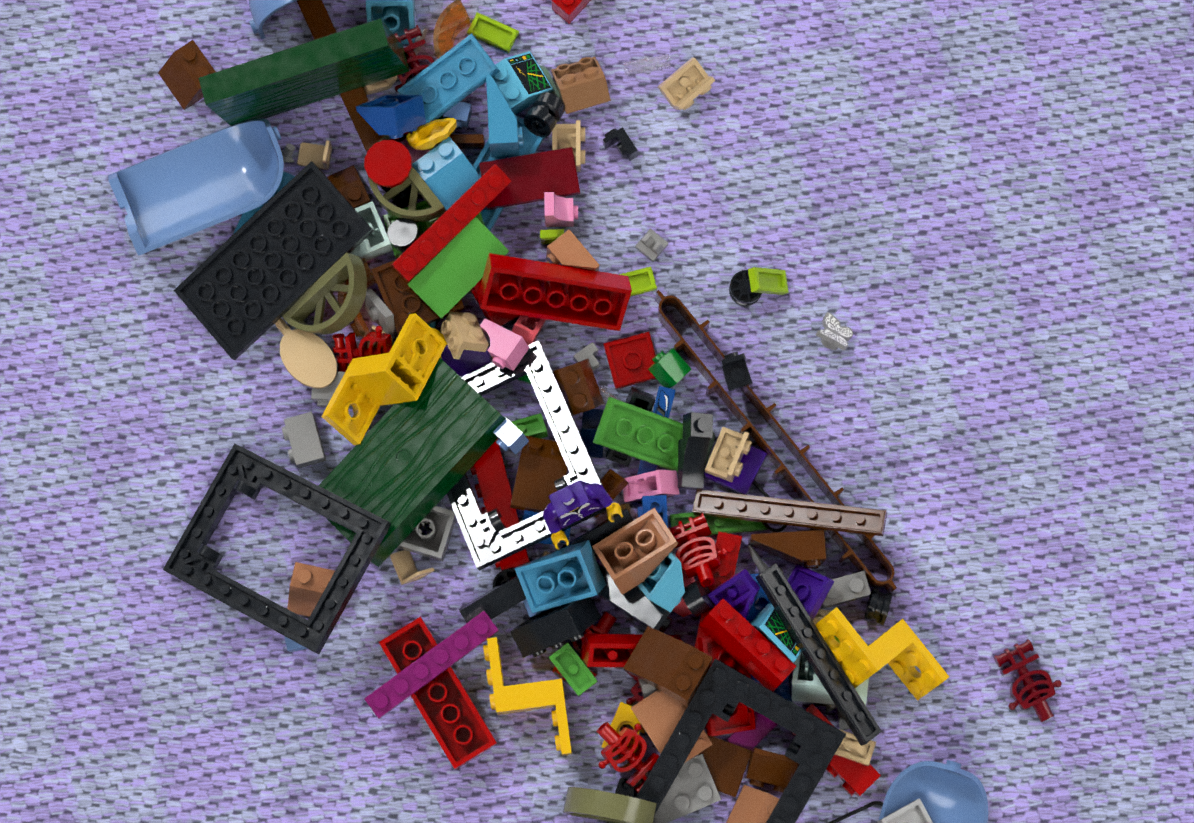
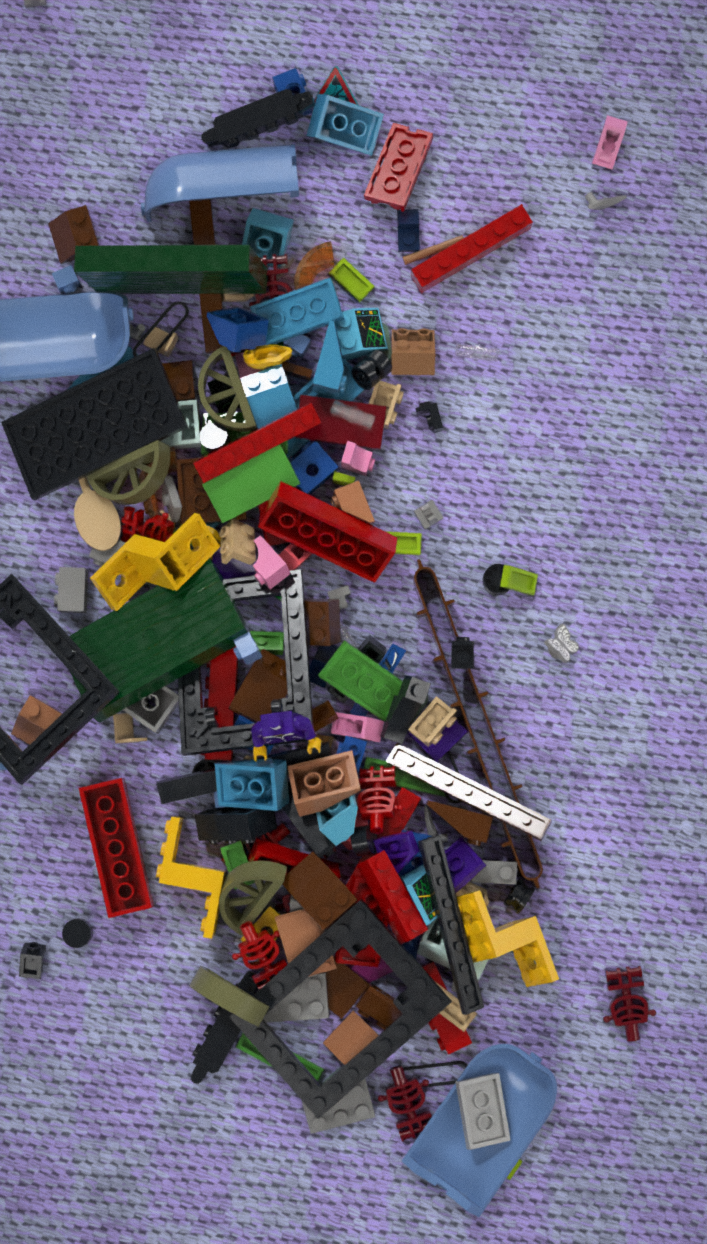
camera: 20 degrees right, 5 degrees up
(196, 123) = (66, 280): none -> medium blue plate
(306, 134) = (156, 323): none -> black piece
(388, 163) = (219, 372): red tile -> none
(425, 798) = (77, 933): none -> black piece
(431, 664) = (117, 822): magenta plate -> none
(516, 221) = (313, 456): none -> blue brick
(540, 165) = (353, 414): none -> clear pin
(595, 664) = (270, 872): none -> olive window
(630, 359) = (378, 611): red tile -> none
(668, 368) = (407, 629): green brick -> none
(686, 85) = (505, 382): tan bracket -> none

